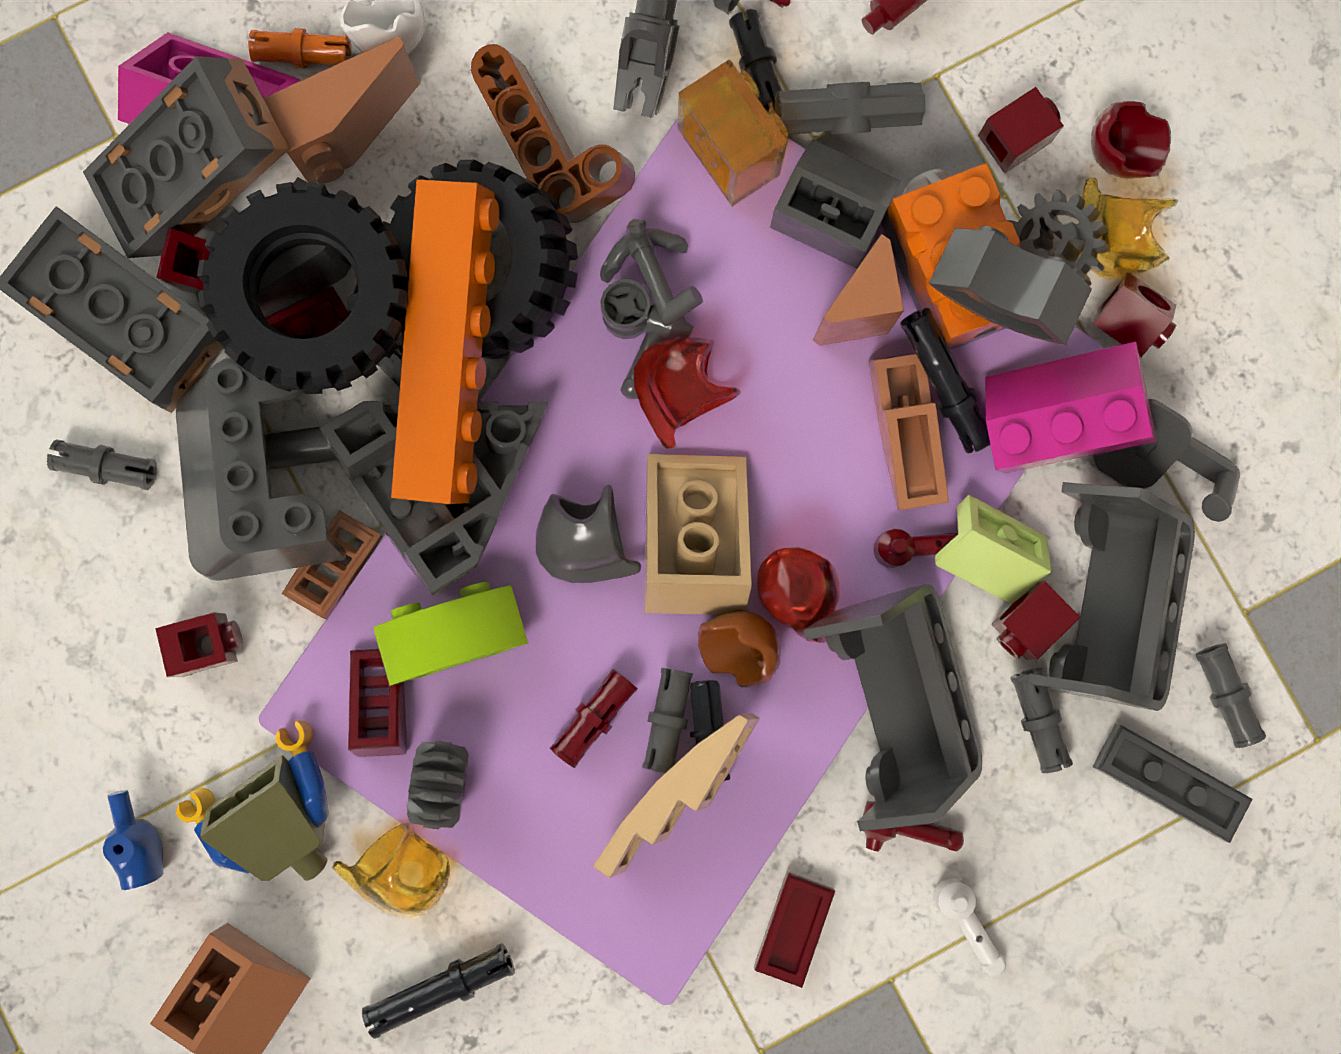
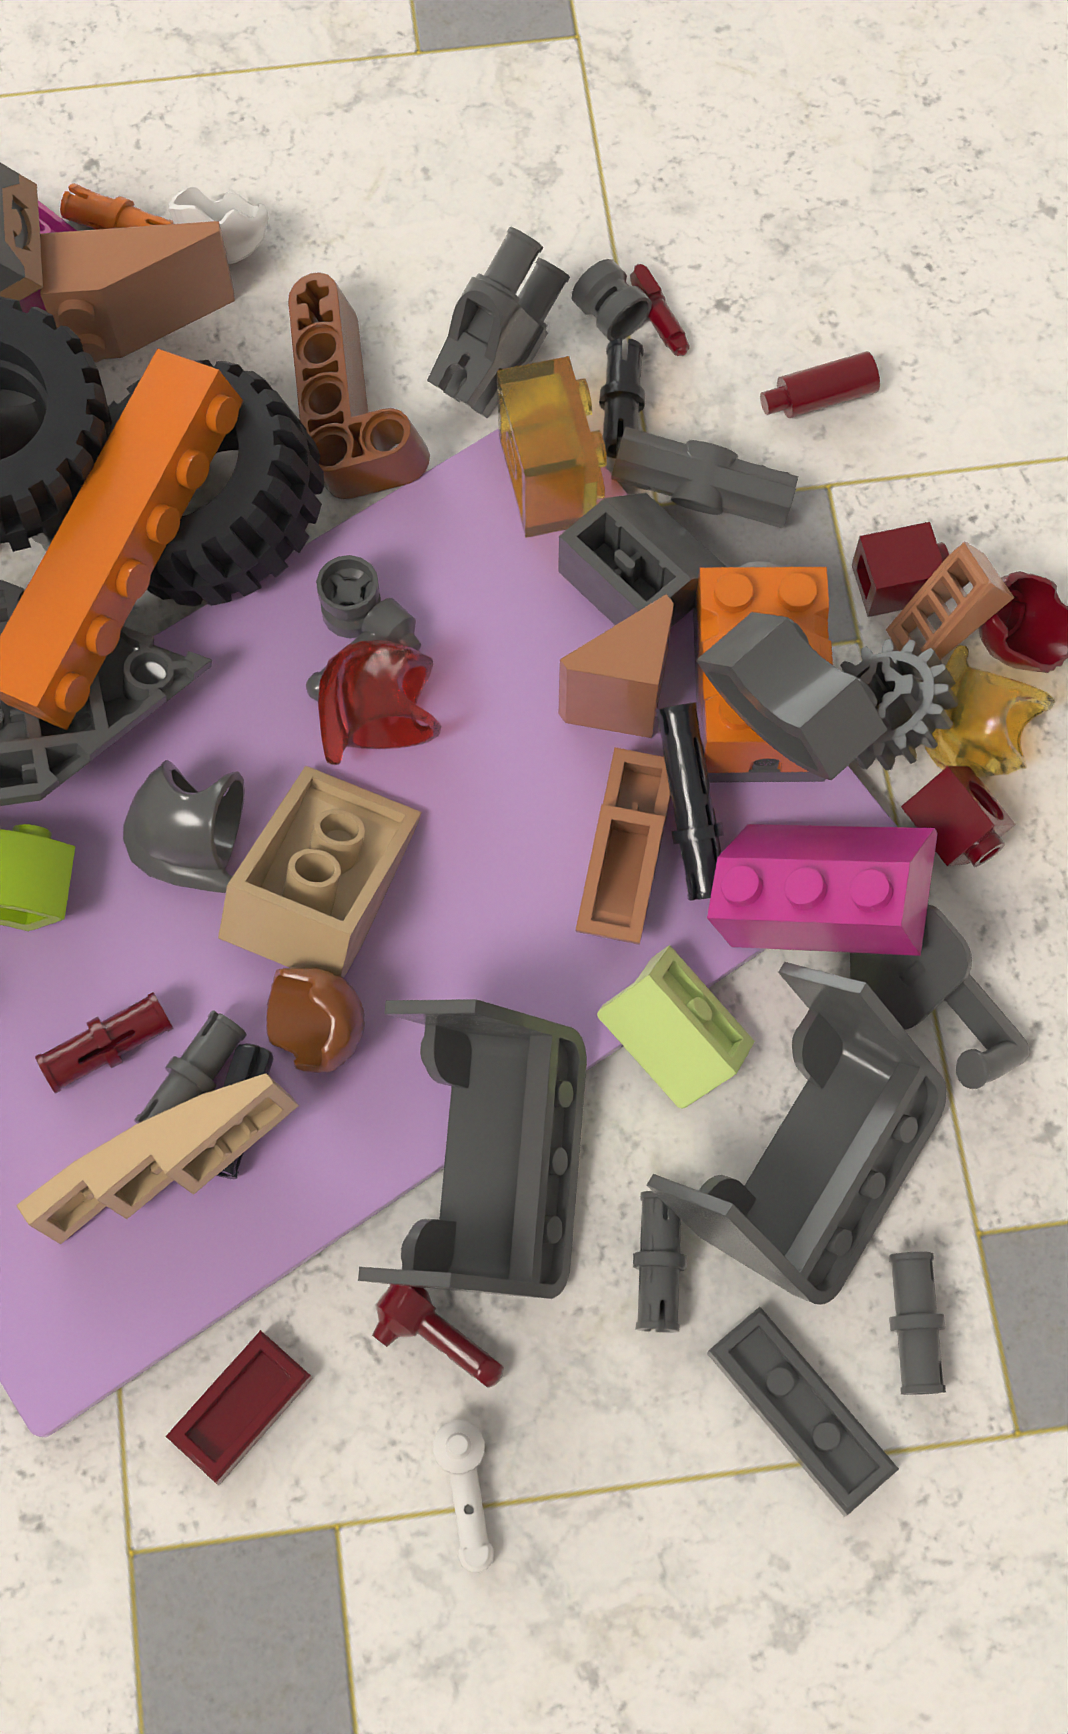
camera: 25 degrees right, 15 degrees down
(640, 244) = (395, 534): dark grey piece -> none
(798, 588) = (411, 960): clear red piece -> none
(898, 547) = (558, 981): dark red piece -> none
(1034, 622) = (695, 1134): dark red brick -> none
(1099, 124) = (973, 609): none -> nougat slope

